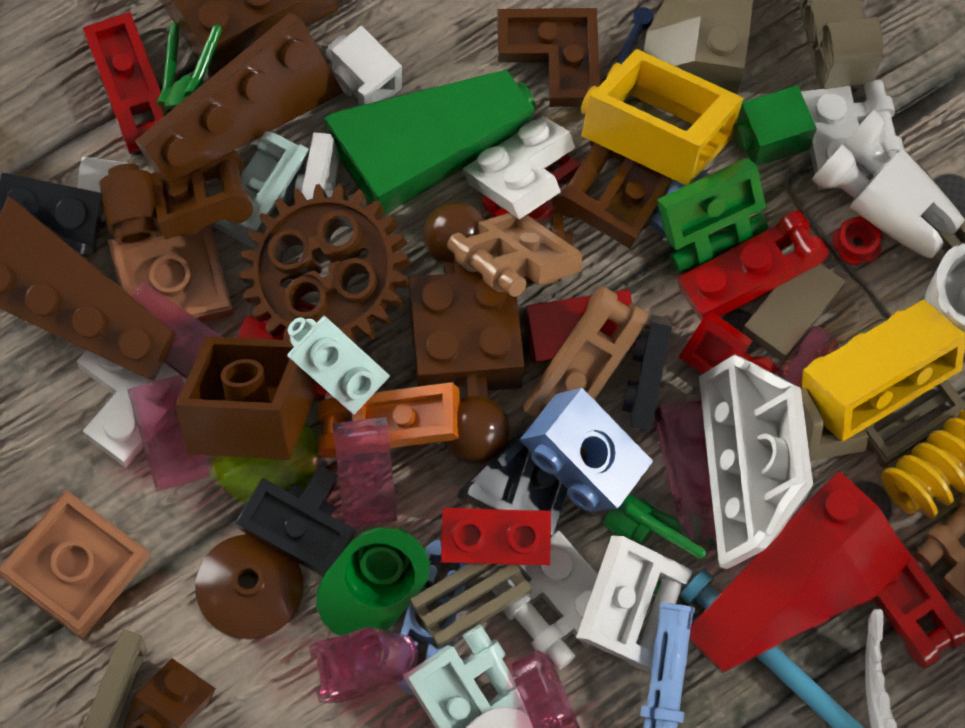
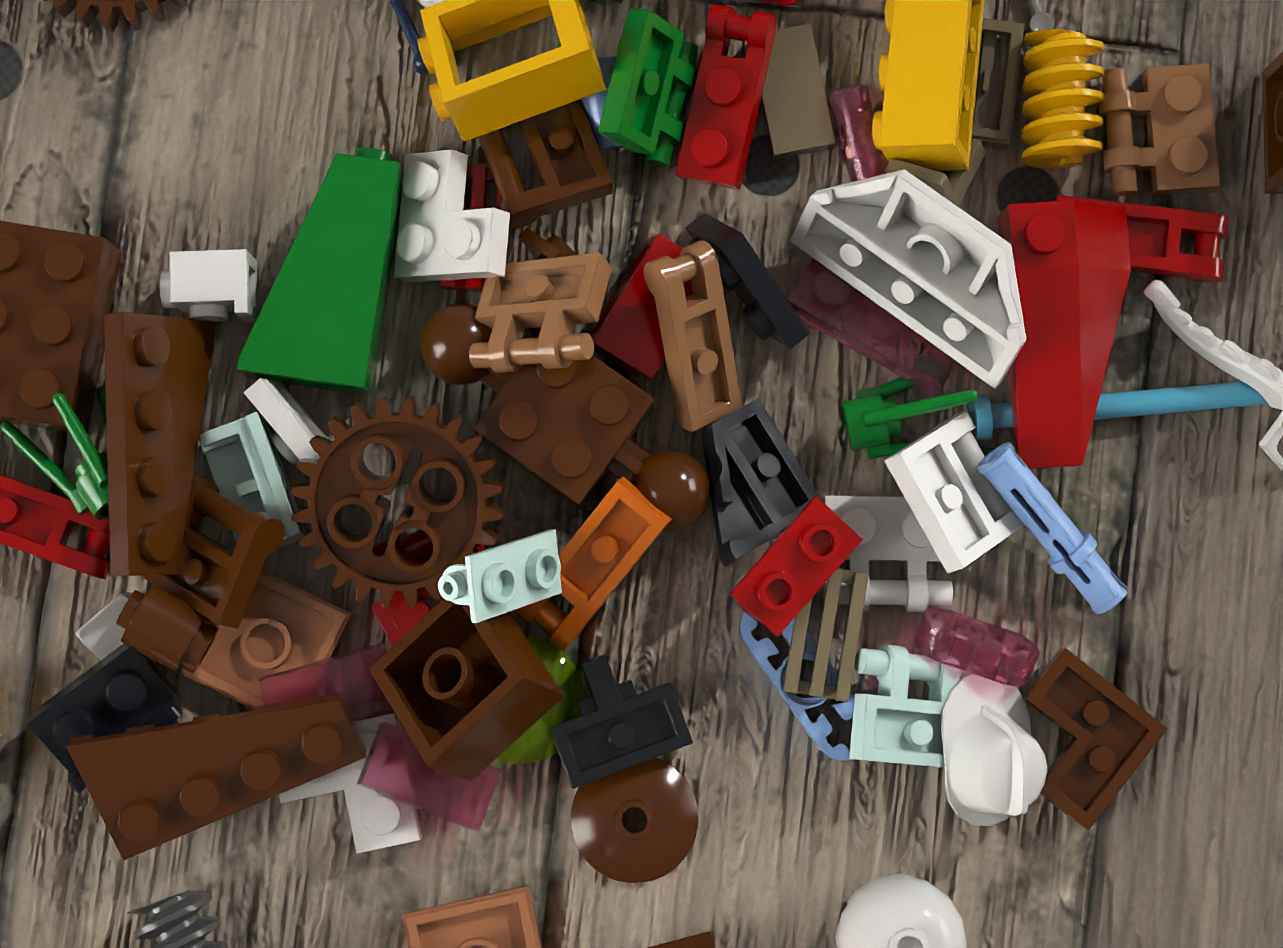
camera: 45 degrees left, 15 degrees up
(354, 666) = (798, 790): clear pink piece -> none
(365, 471) = (625, 629): clear pink plate -> none
(372, 581) = (734, 708): green piece -> none
(557, 36) = (344, 68): reddish brown plate -> none
(612, 456) = (808, 394): brick -> none
(716, 342) = (778, 195): red plate -> none

